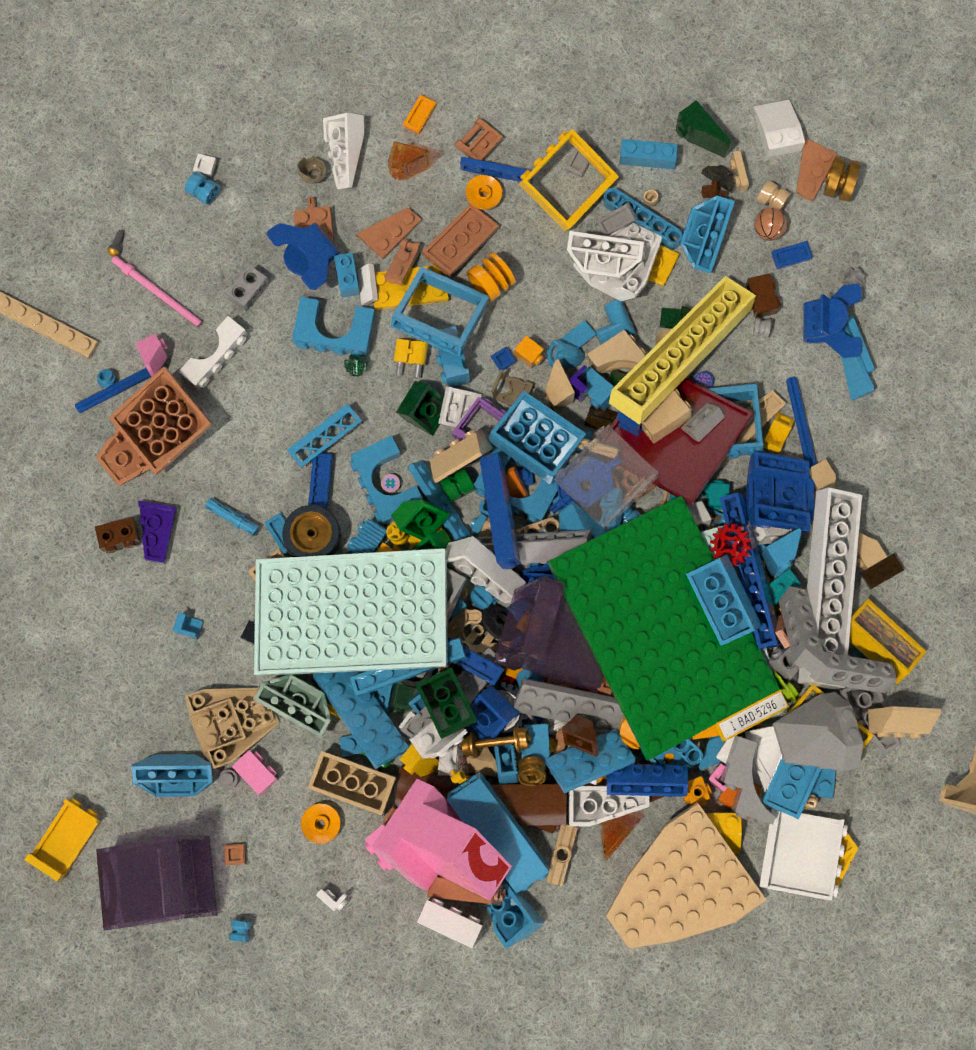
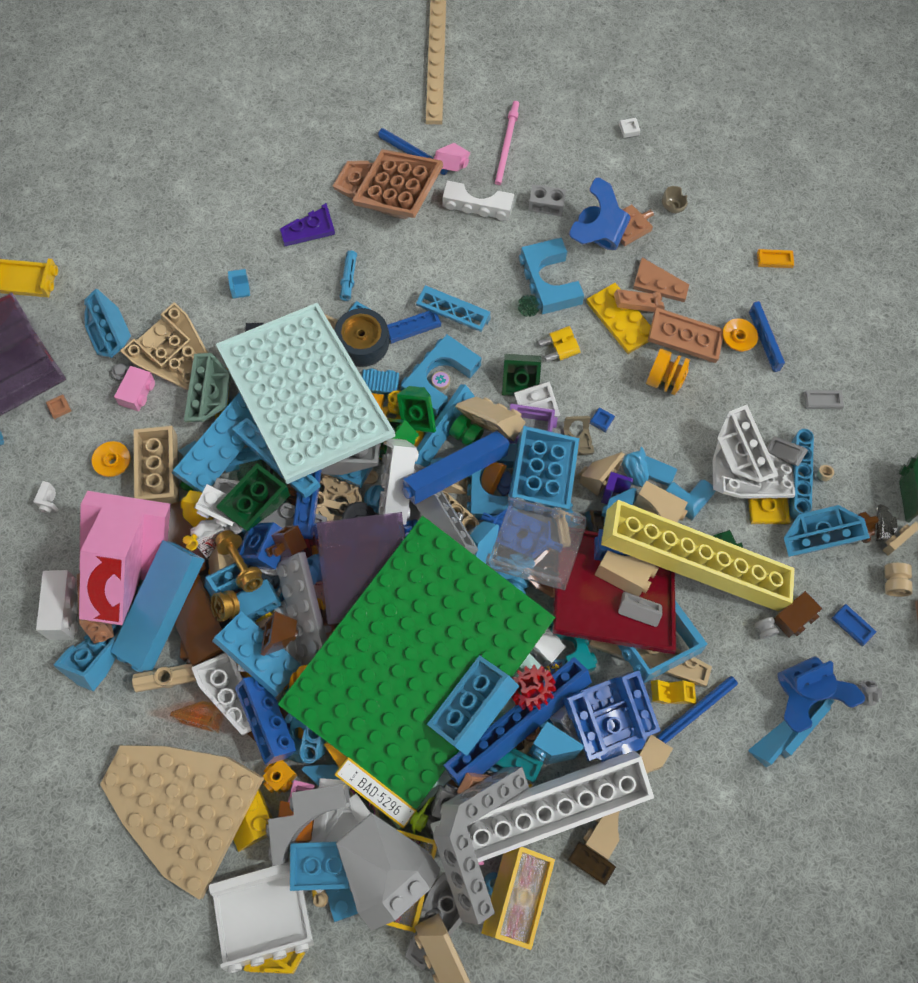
camera: 60 degrees right, 10 degrees down
(106, 378) = (415, 138): dark azure plate -> none
(114, 248) = (523, 99): dark grey piece -> none
(117, 535) = (290, 200): reddish brown brick -> none
(204, 189) = (609, 132): dark azure wheel -> none
(345, 139) = (720, 210): white wedge -> none
(347, 275) = (601, 264): dark azure brick -> none
(367, 284) = (603, 284): white tile -> none
(407, 161) = (728, 262): clear orange slope -> none
(432, 335) = (585, 348): dark azure window -> none
(454, 367) = (577, 375): dark azure wedge -> none
(483, 144) = (782, 316): nougat plate -> none
(502, 690) = (287, 542): none -> reddish brown brick
(529, 352) = (620, 434): light orange brick -> none
(591, 156) = (811, 366): yellow window -> none
(648, 154) = (863, 451): dark azure brick -> none
(704, 379) = (684, 599): tile -> none
(770, 224) = (870, 588): nougat piece -> none

